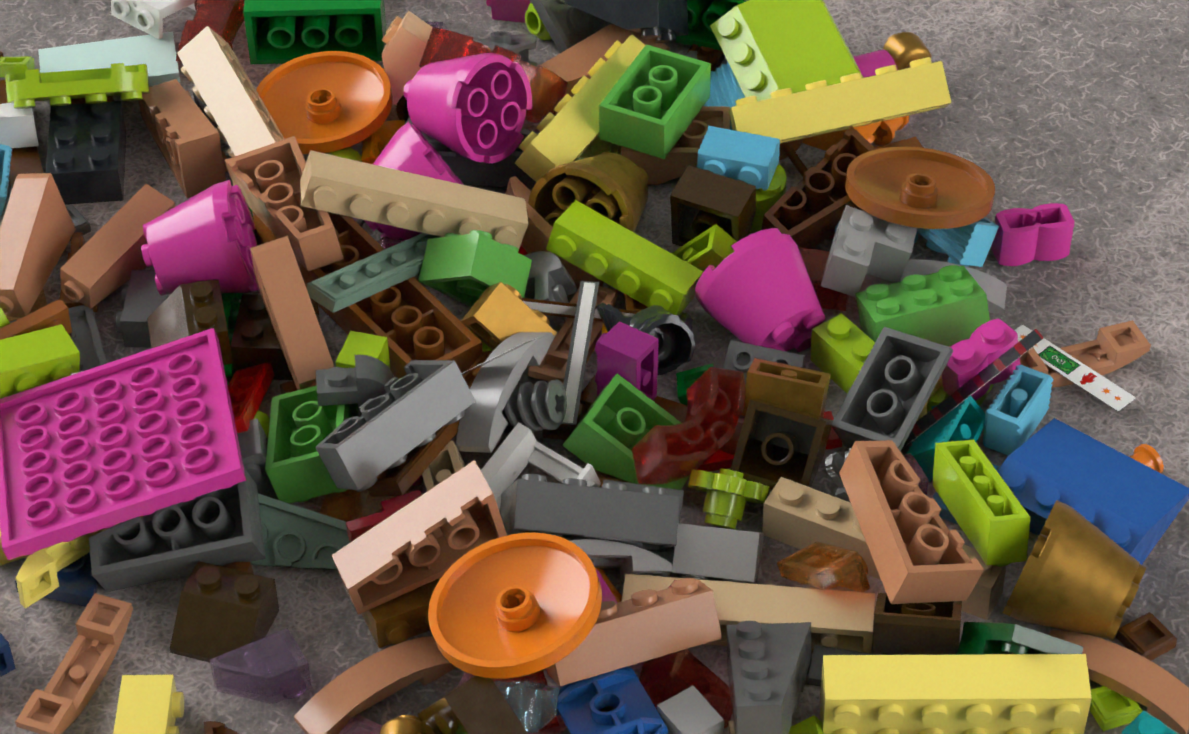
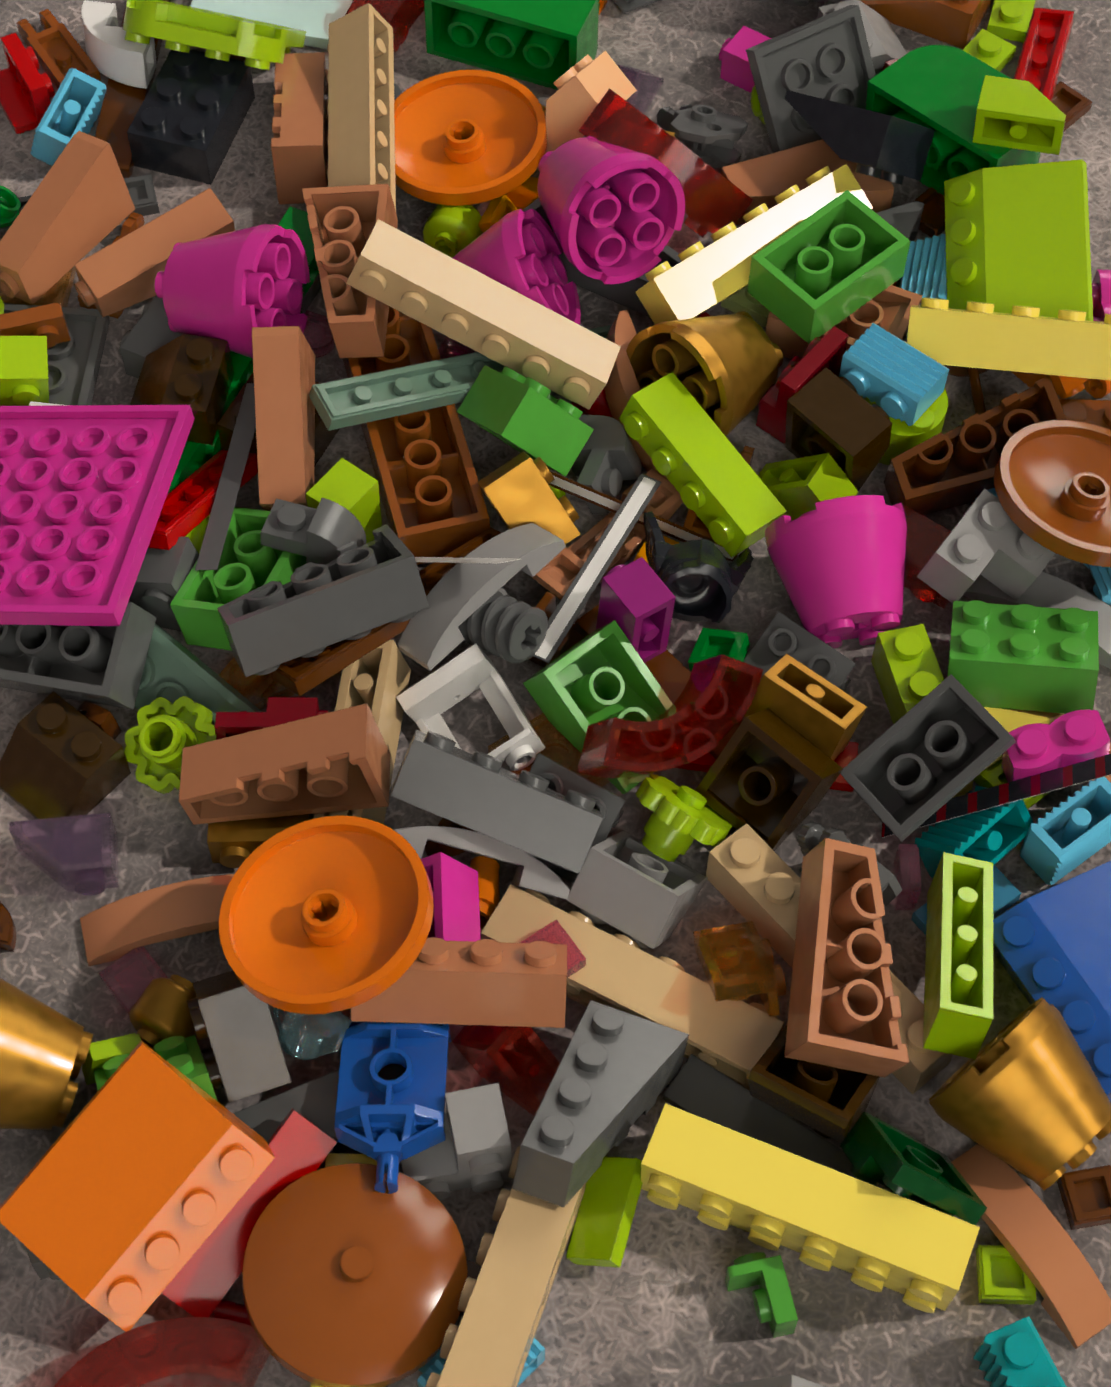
camera: 20 degrees right, 15 degrees up
(265, 373) = (229, 484): none -> dark grey sticker
(307, 574) = (160, 739): none -> lime plant
(658, 207) = (800, 370): none -> dark red plate

